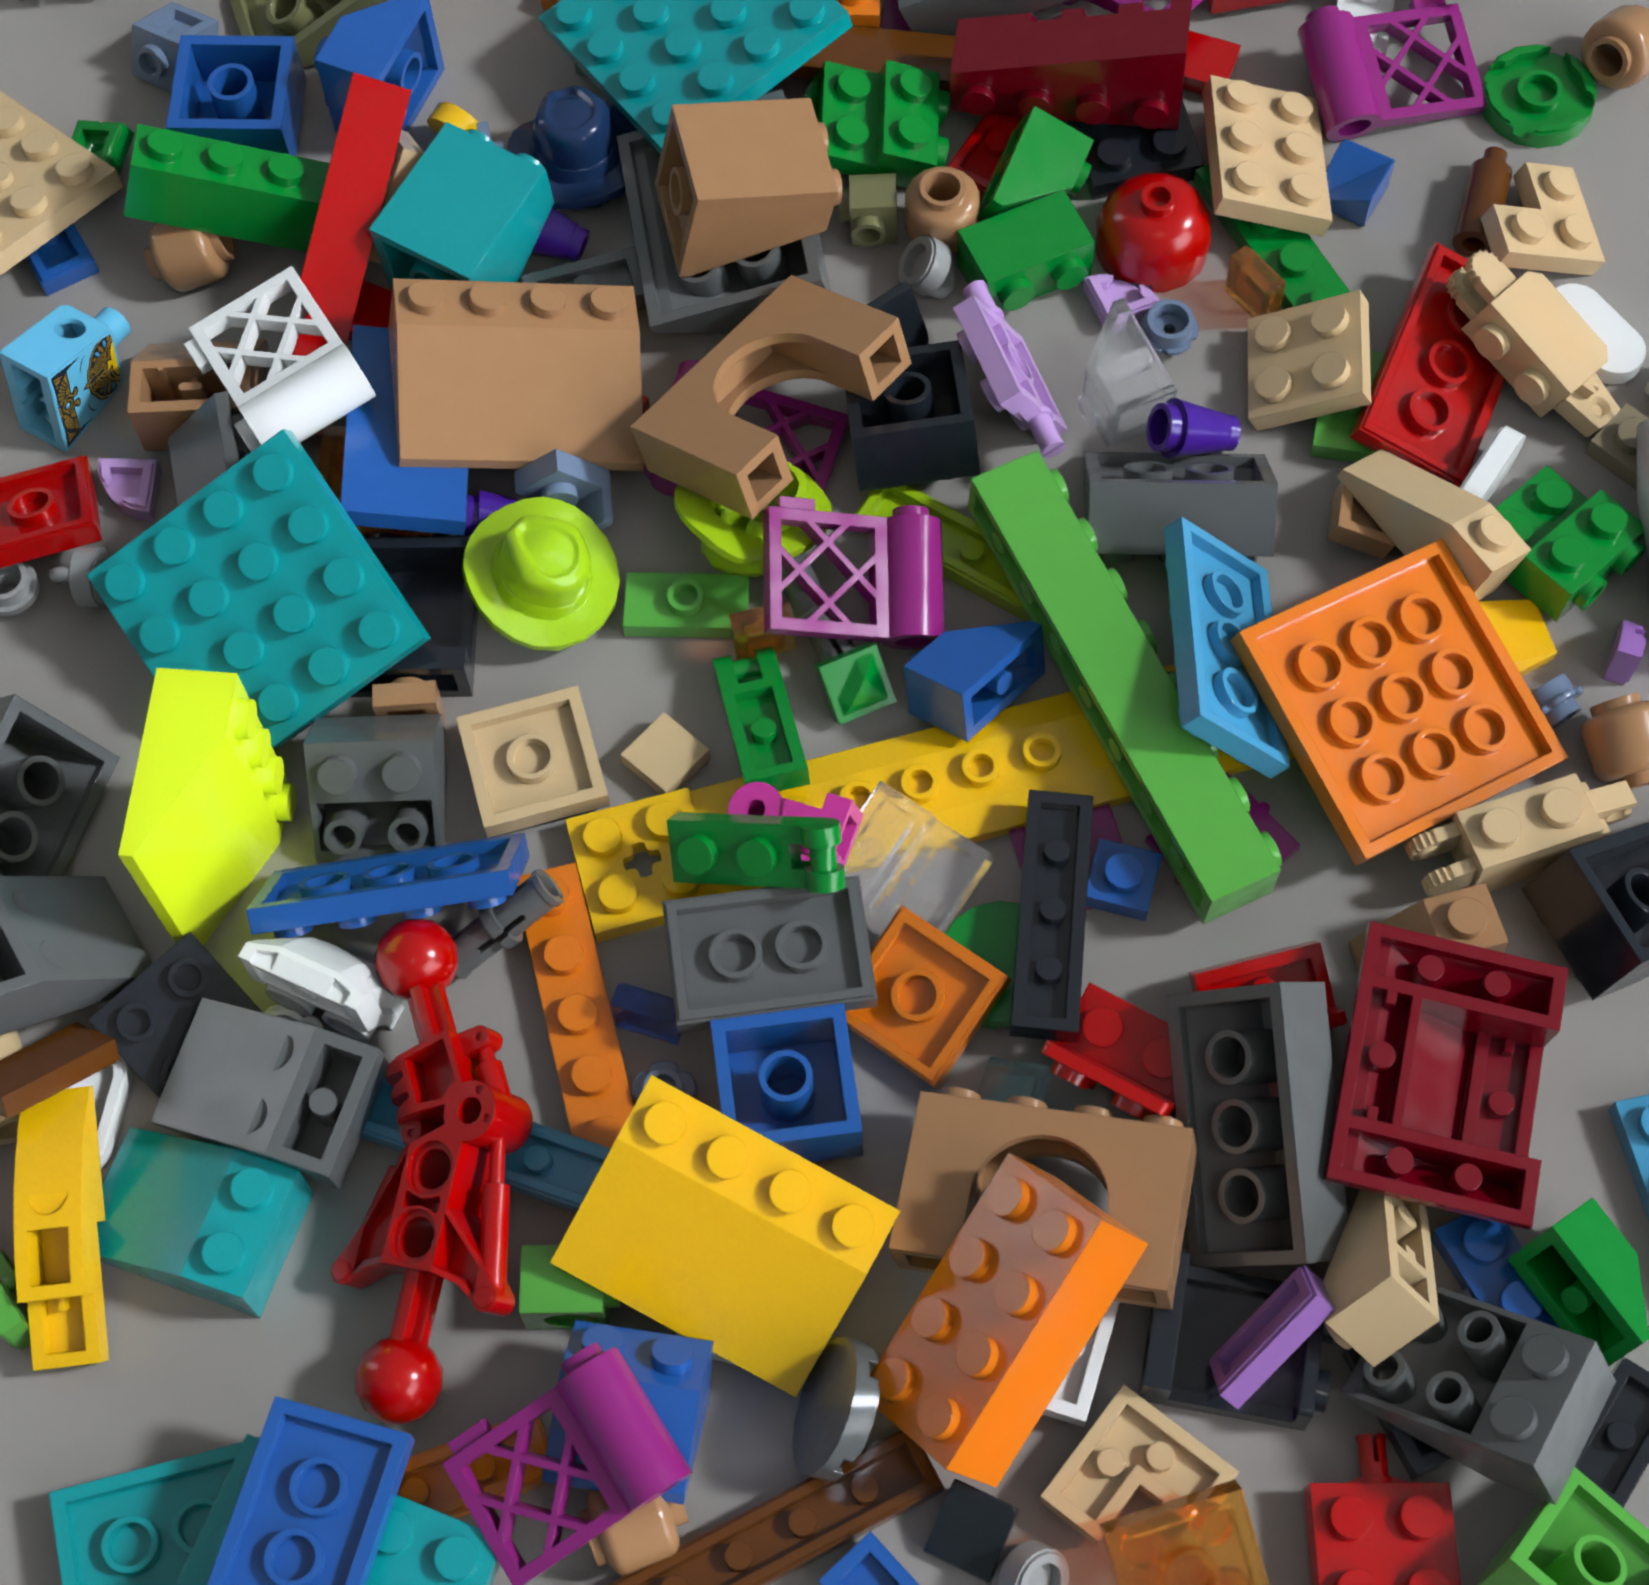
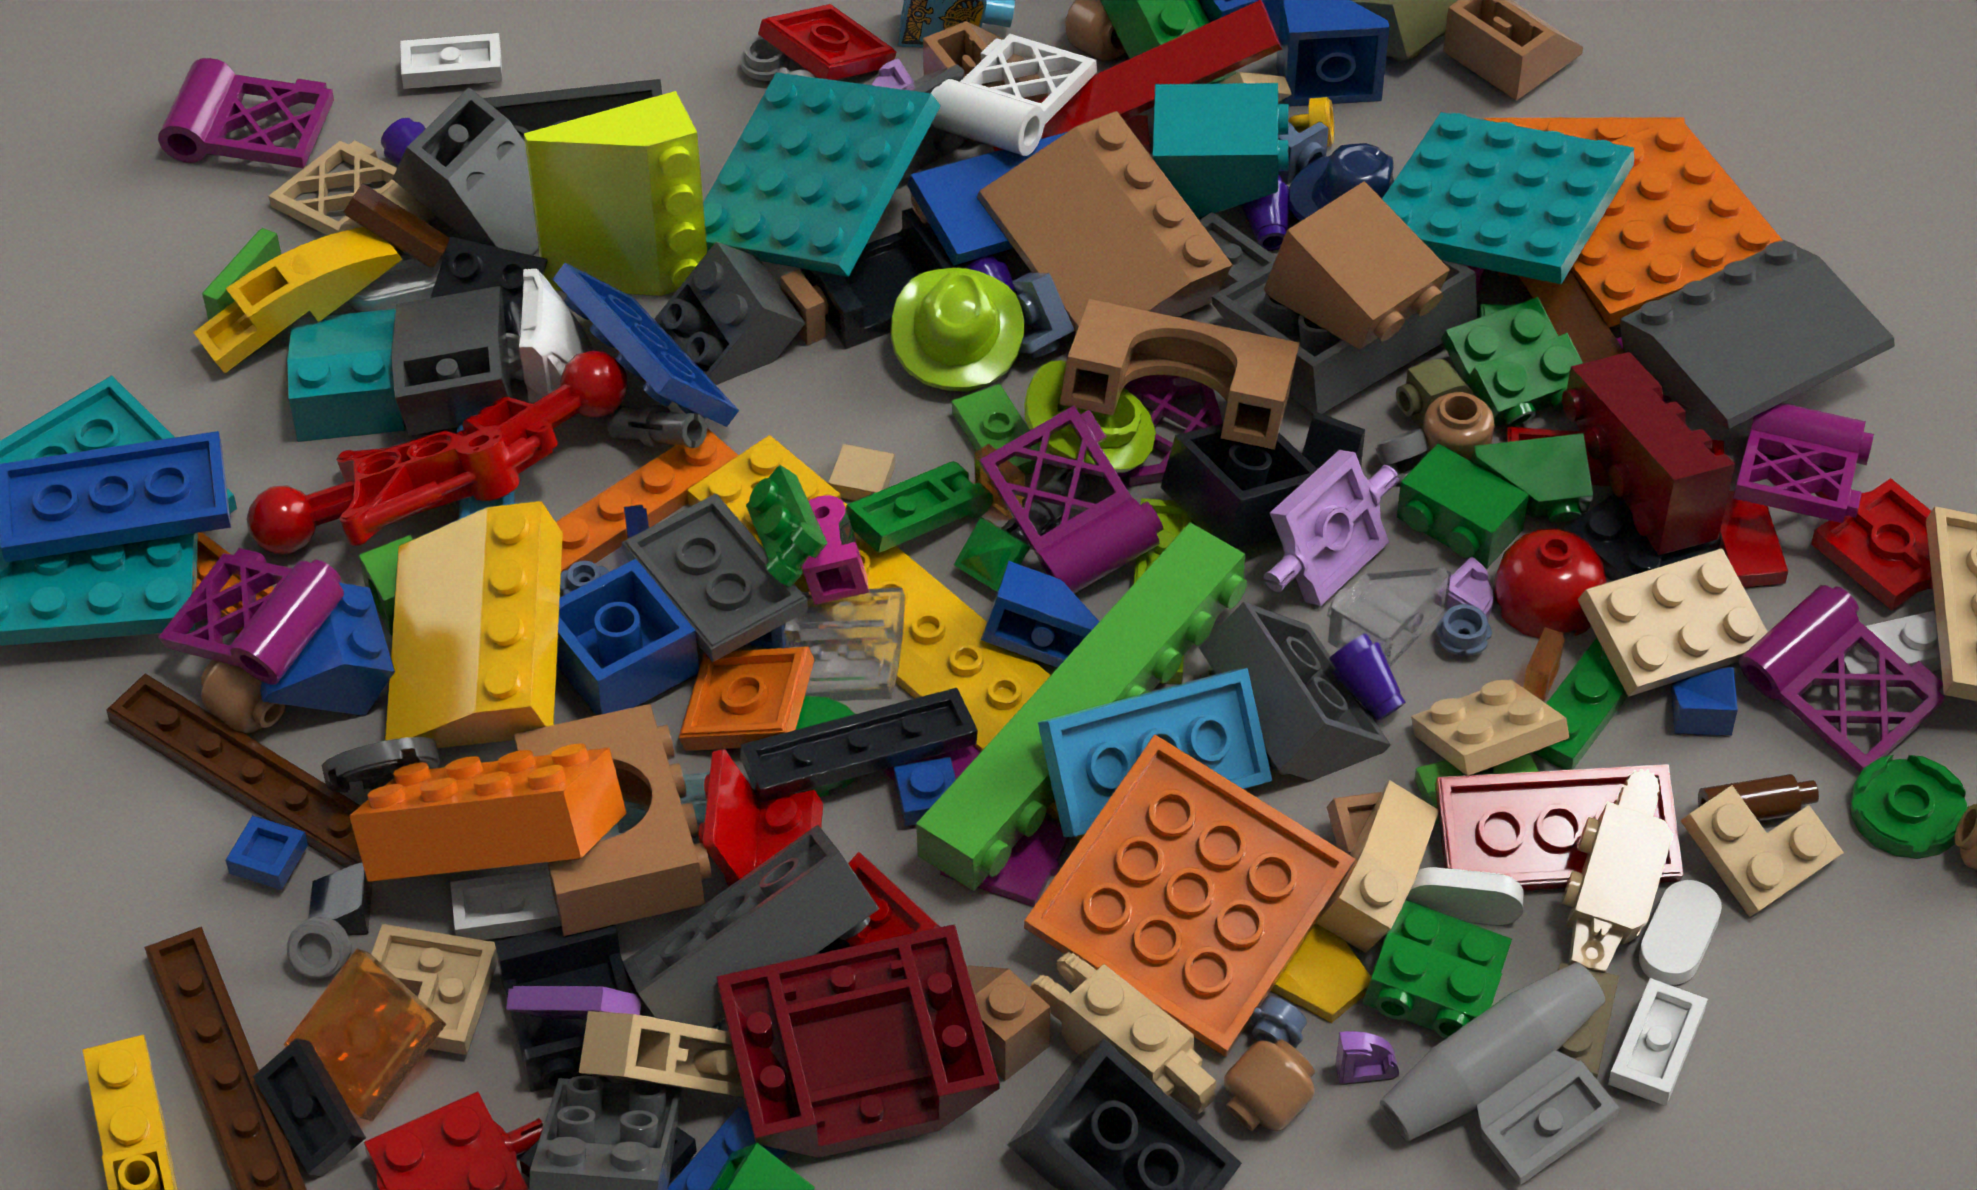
camera: 60 degrees right, 15 degrees down
(532, 761) = (805, 396): tan plate -> none

